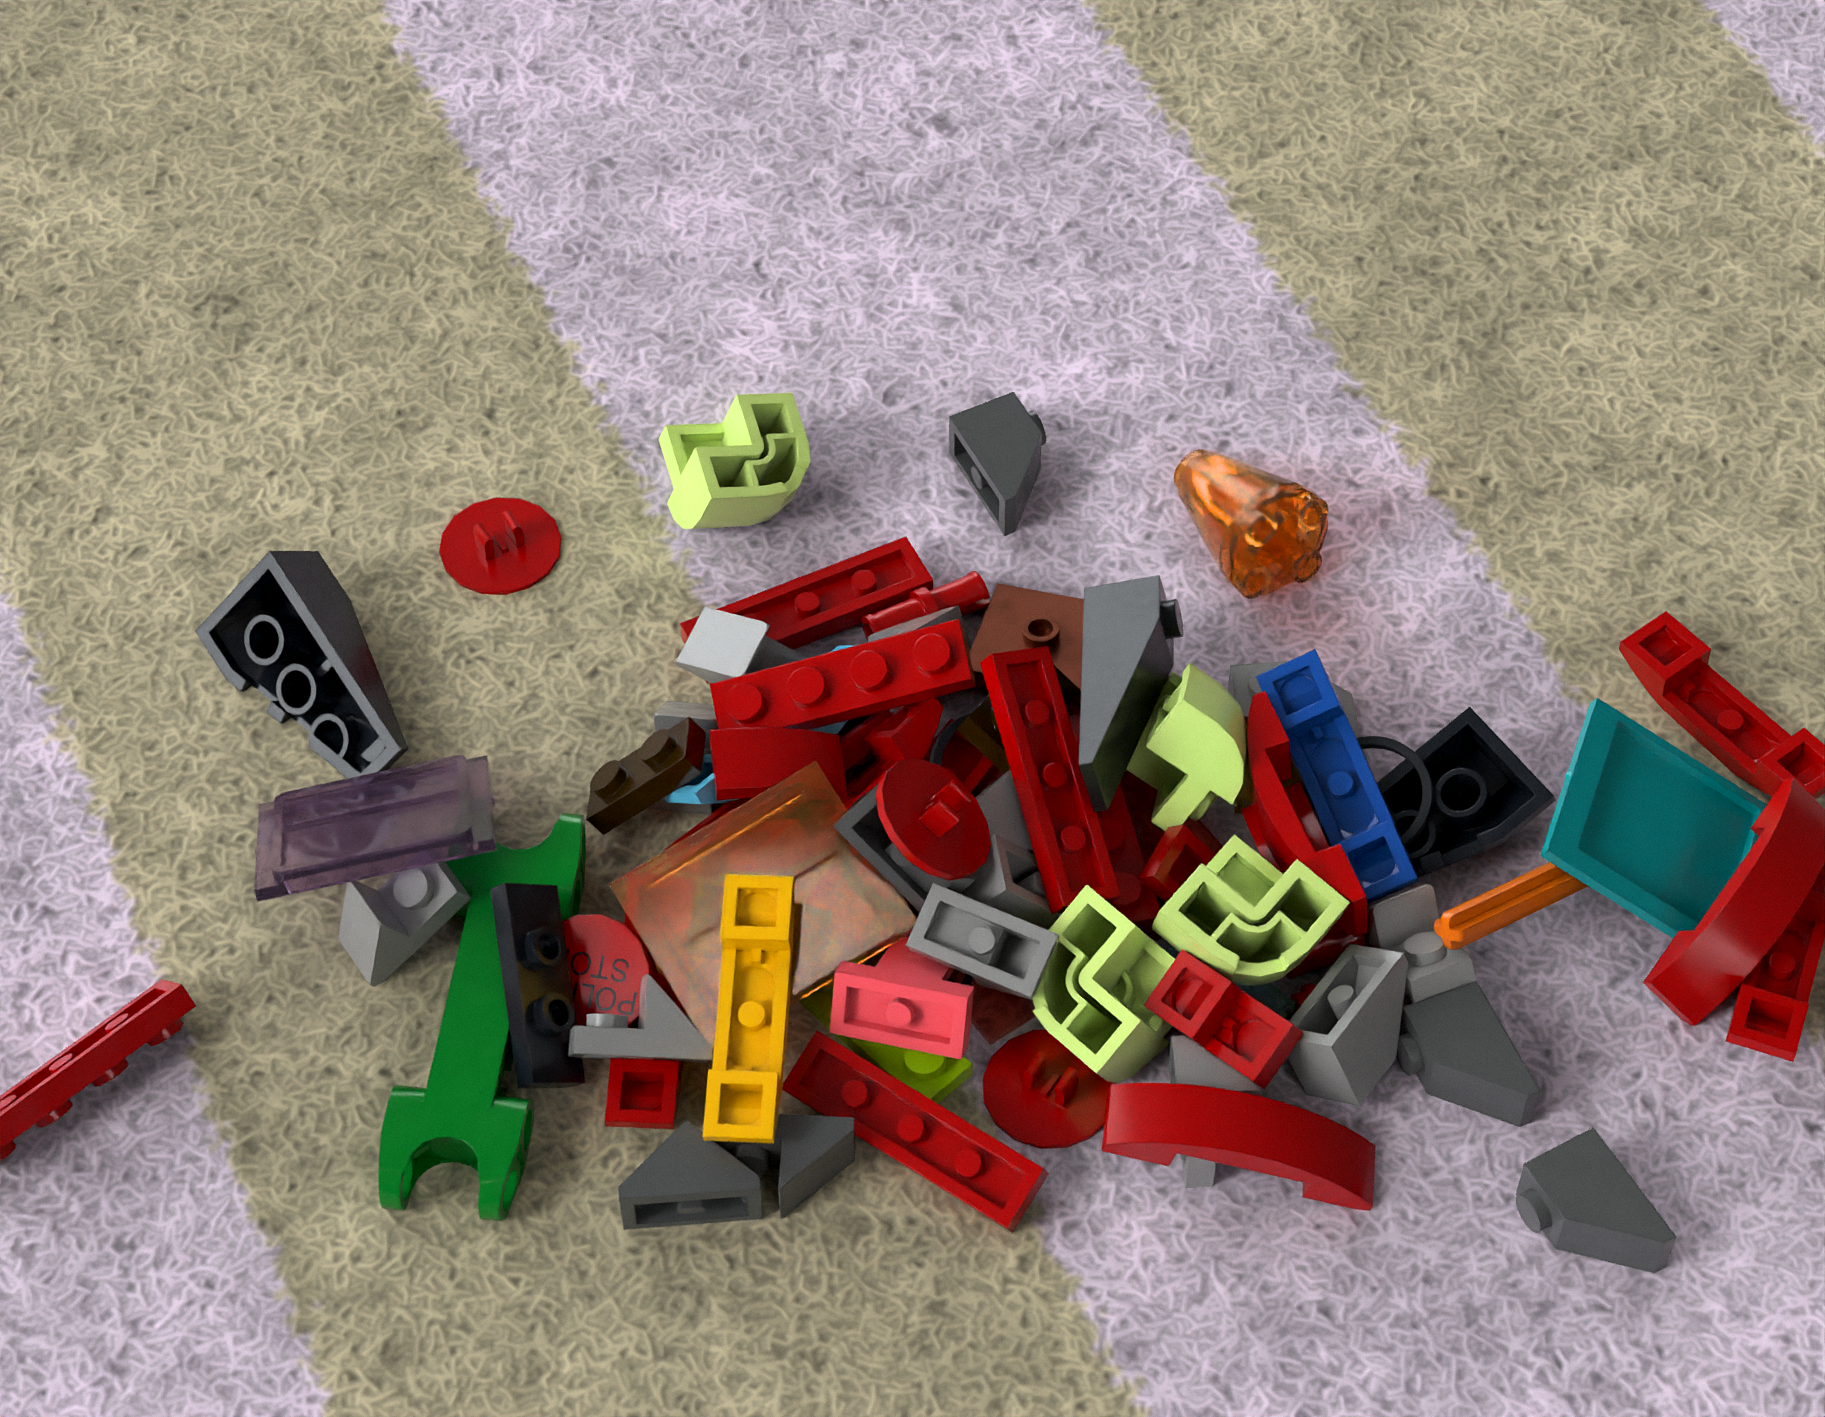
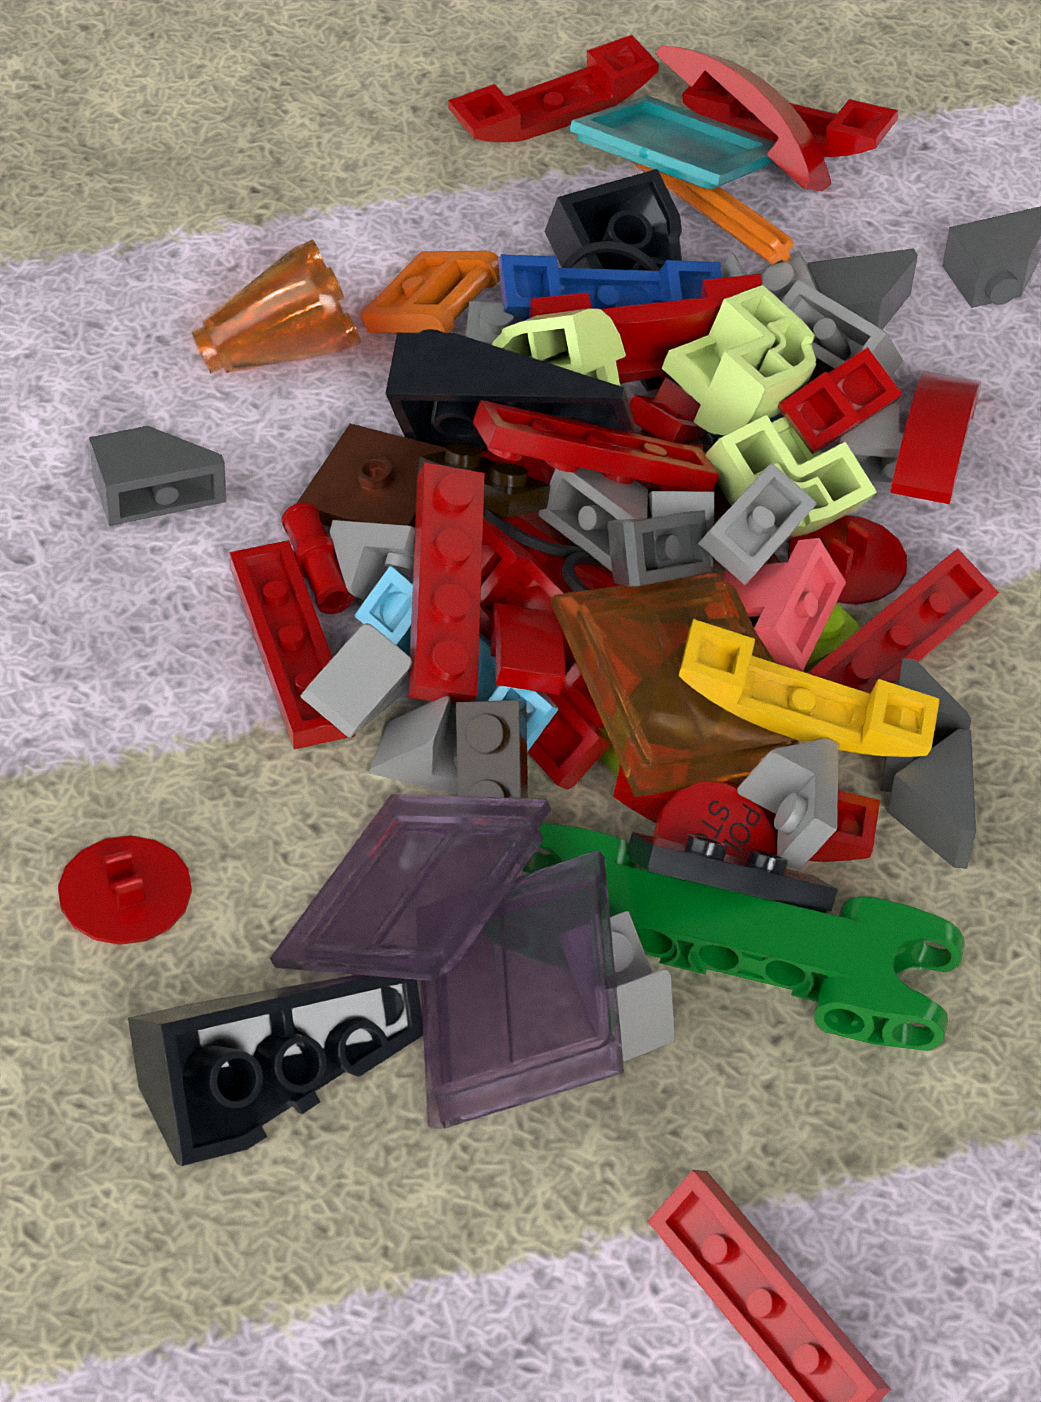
camera: 85 degrees left, 5 degrees down
(488, 736) = (415, 887): none -> clear purple piece
(739, 467) = (115, 657): yellowish green brick -> none
(933, 819) = (647, 508): red piece -> none
(1349, 643) = (432, 291): none -> orange plate

